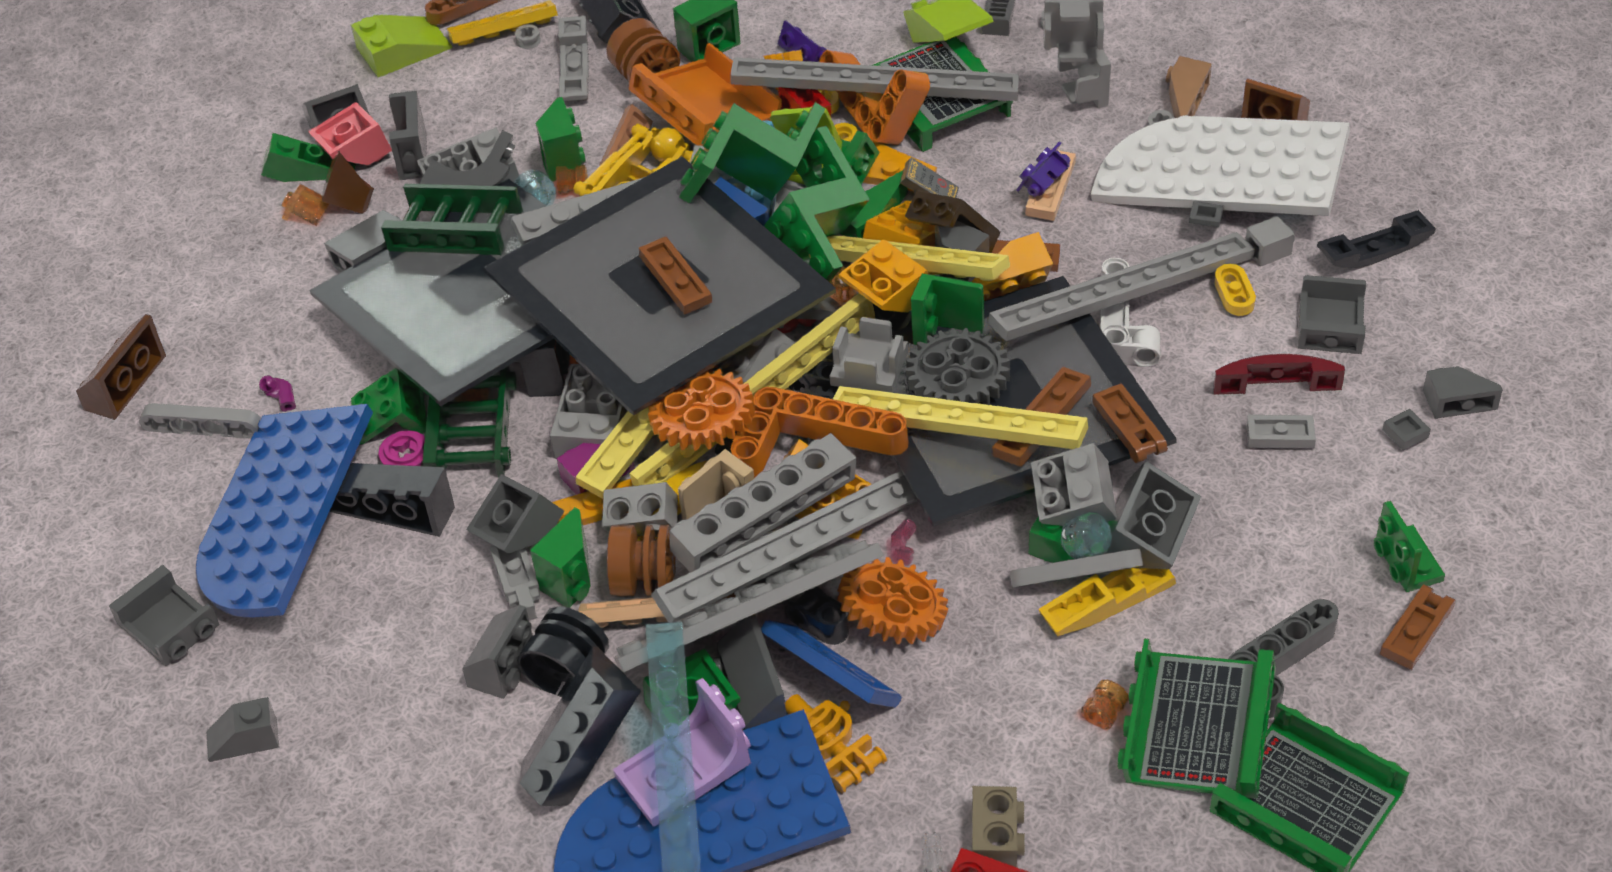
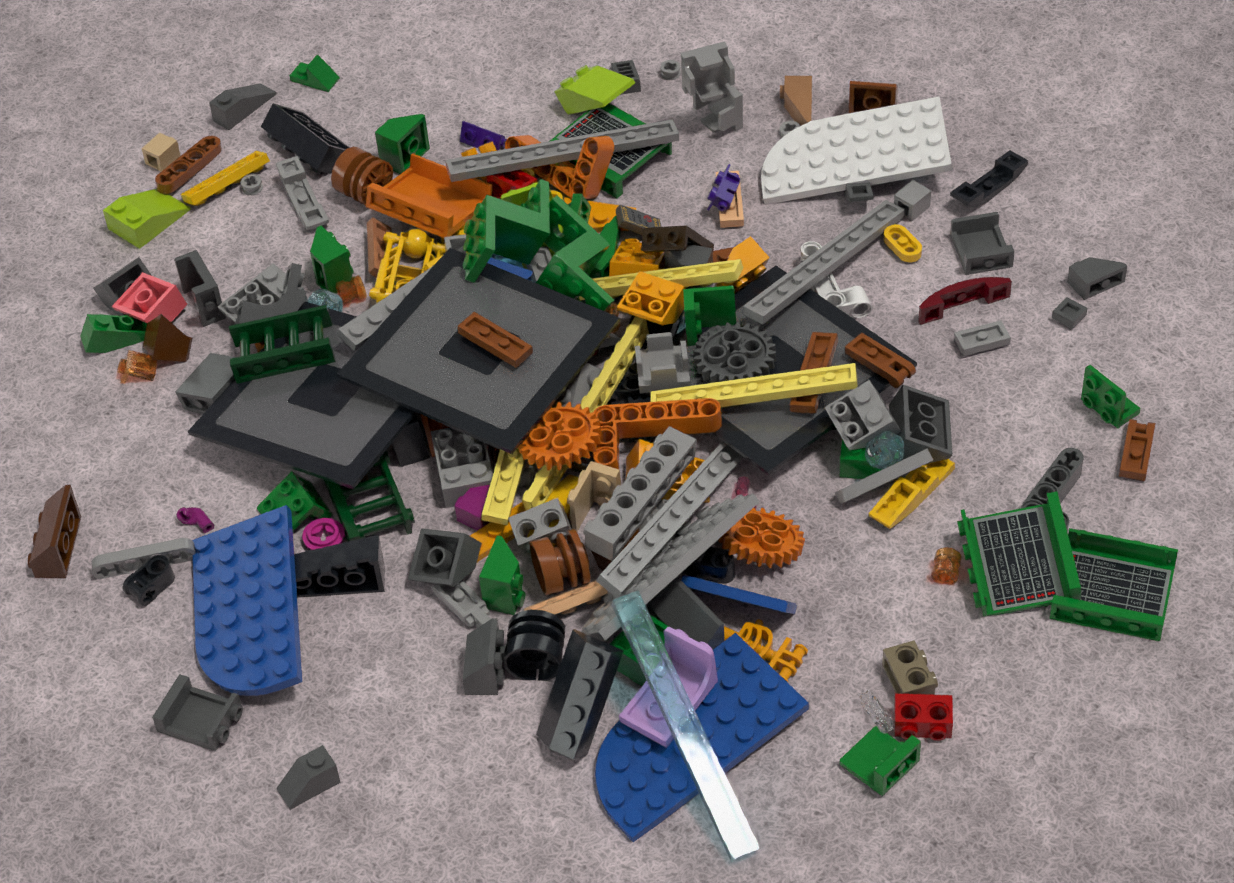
camera: 20 degrees left, 0 degrees up
(196, 447) = (150, 579): none -> black piece

